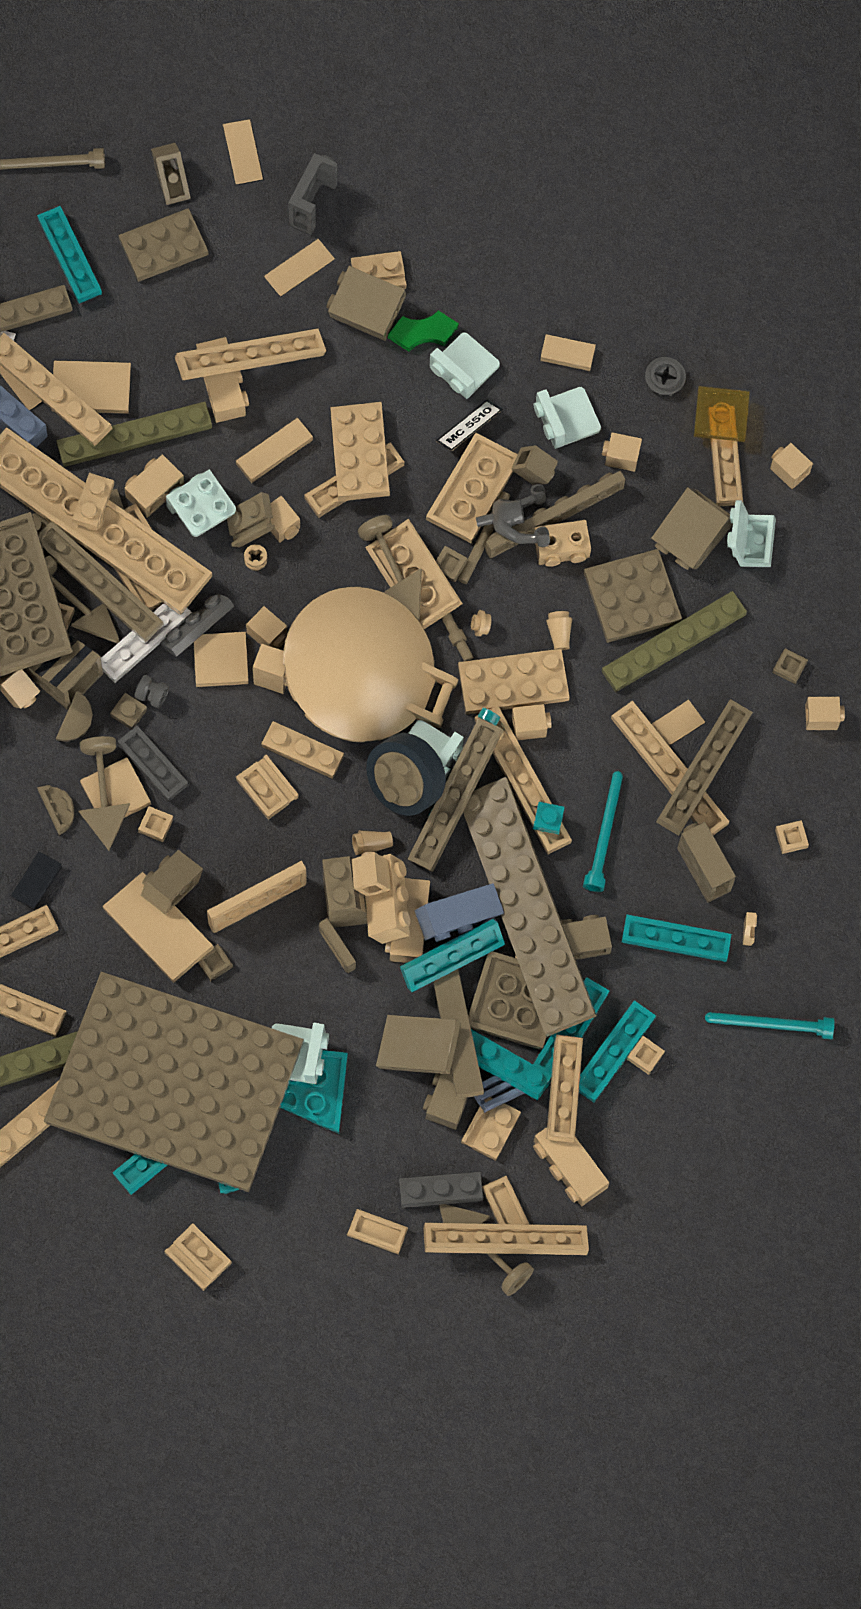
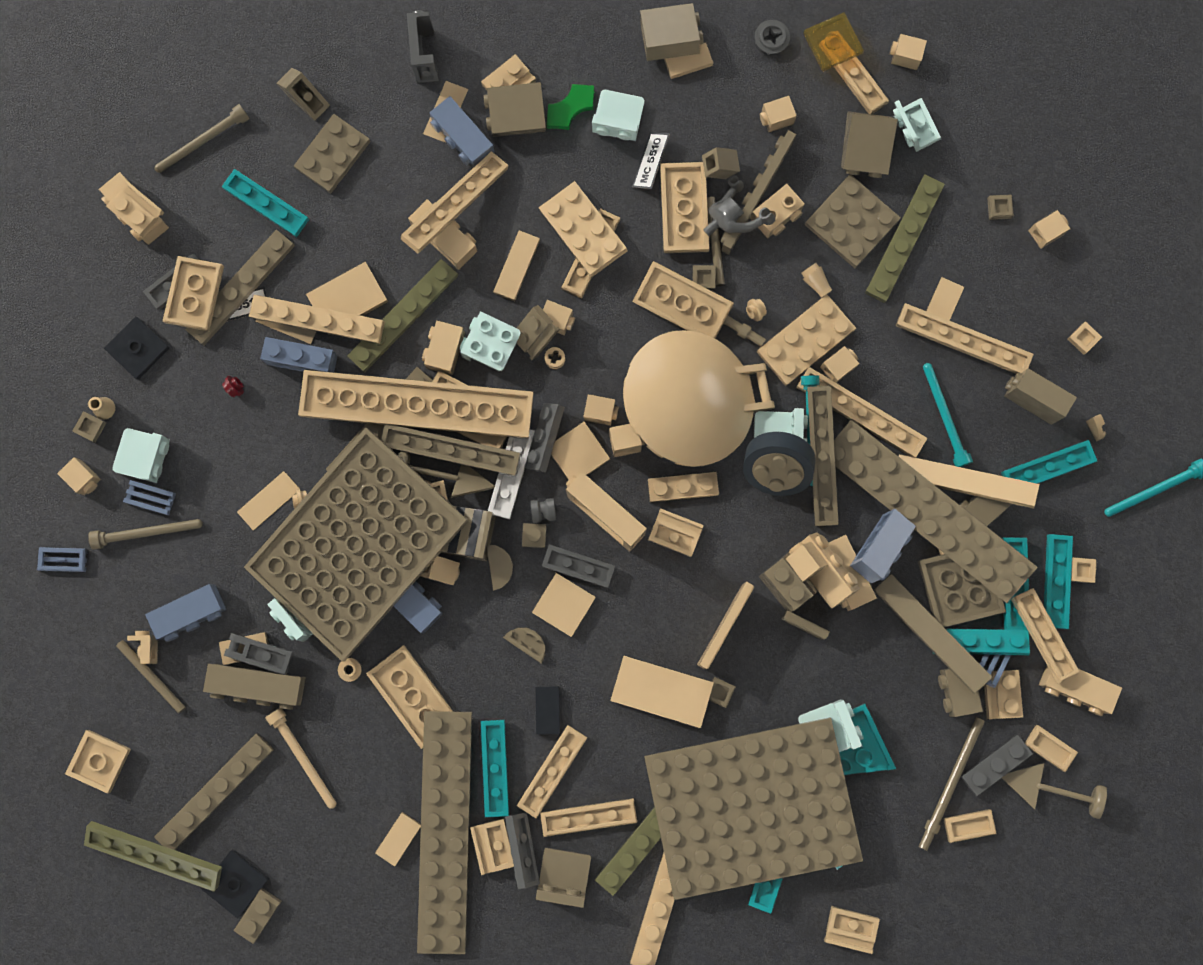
camera: 25 degrees left, 10 degrees up
(93, 501) = (408, 389): tan plate -> none
(106, 819) = (573, 631): dark tan piece -> none
(155, 824) = (610, 612): tan plate -> none
(171, 882) = (653, 652): dark tan brick -> none
(209, 721) = (605, 511): none -> tan window
(242, 151) = (346, 45): tan sticker -> none
(299, 293) = (460, 132): none -> sand blue brick
(340, 1209) = (932, 826): none -> dark tan bar
(371, 841) = (778, 529): tan cone -> none
(406, 590) = (686, 319): dark tan piece -> none
(418, 1044) = (916, 667): dark tan tile -> none
(452, 955) = (898, 582): teal plate -> none
(505, 1238) = (1071, 777): tan plate -> none
(548, 818) = (901, 431): teal plate -> none
(565, 314) = (670, 31): none -> dark tan brick
(566, 416) = (719, 110): light aqua bracket -> none
(589, 905) = (976, 482): none -> tan tile
(704, 767) = (992, 324): dark tan plate -> none

